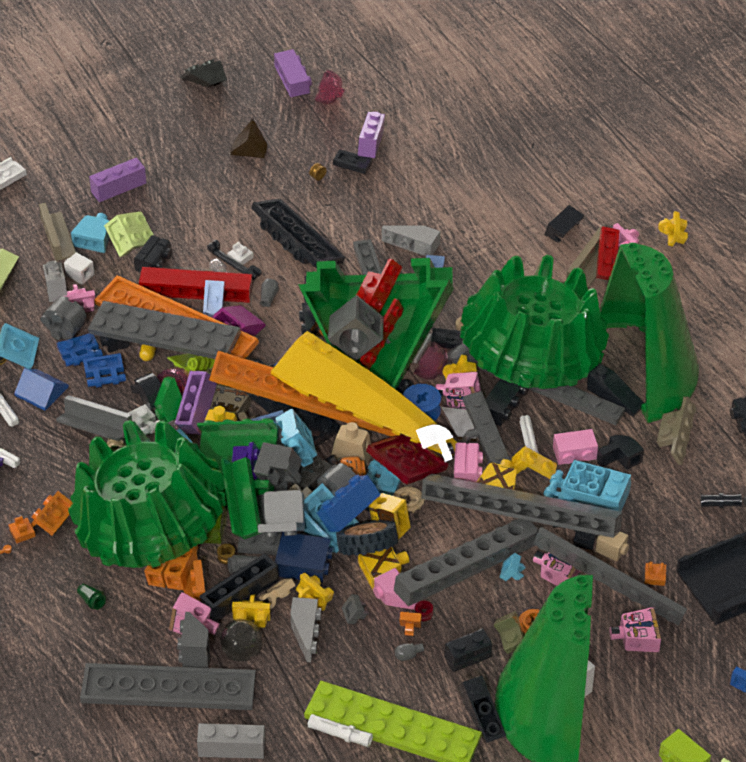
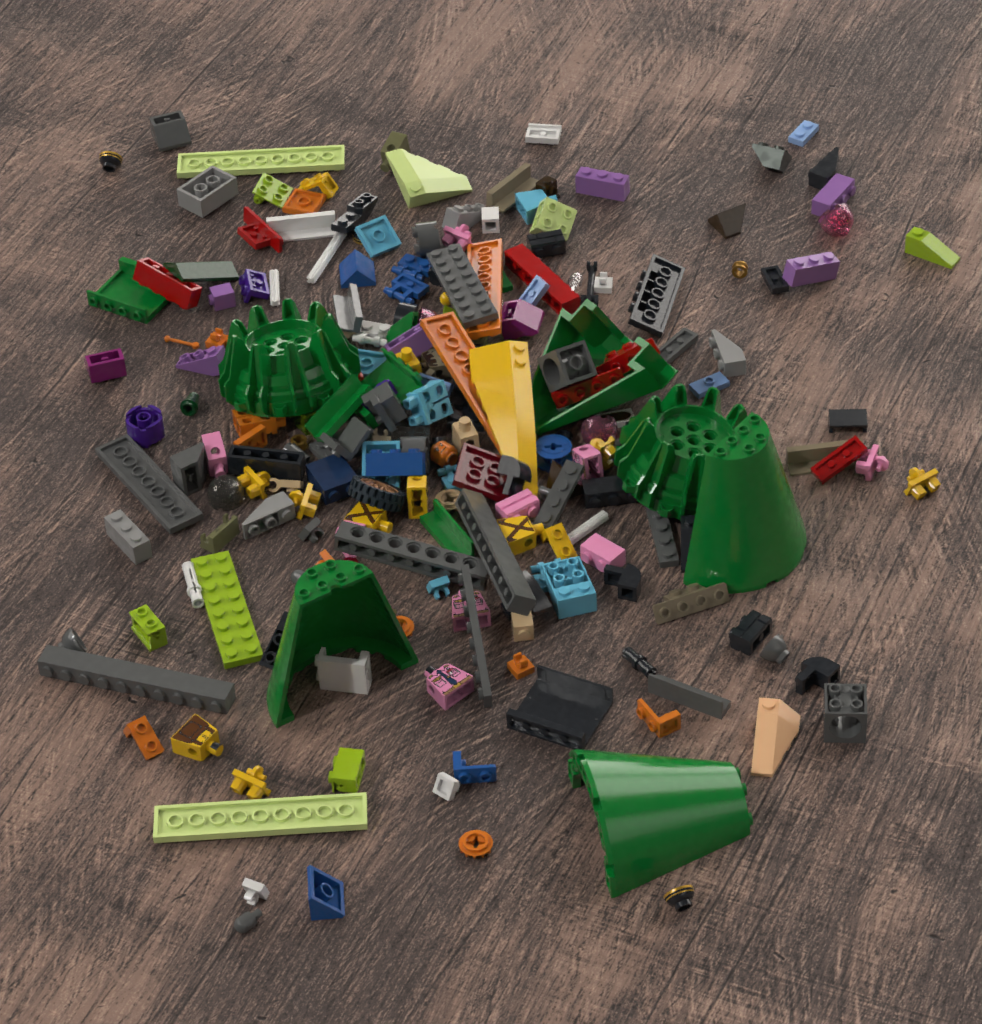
camera: 55 degrees right, 5 degrees down
(47, 552) = (203, 360): none -> medium lavender slope
(83, 209) = (548, 185): none -> dark brown brick
(91, 643) = (145, 425): none -> dark purple brick
(191, 42) = (803, 133): none -> light blue plate
(258, 58) = (824, 170): none -> black slope
(292, 674) = (220, 535): none -> olive hinge
(410, 64) = (928, 247): none -> lime slope
(449, 523) = (446, 530): none -> green panel

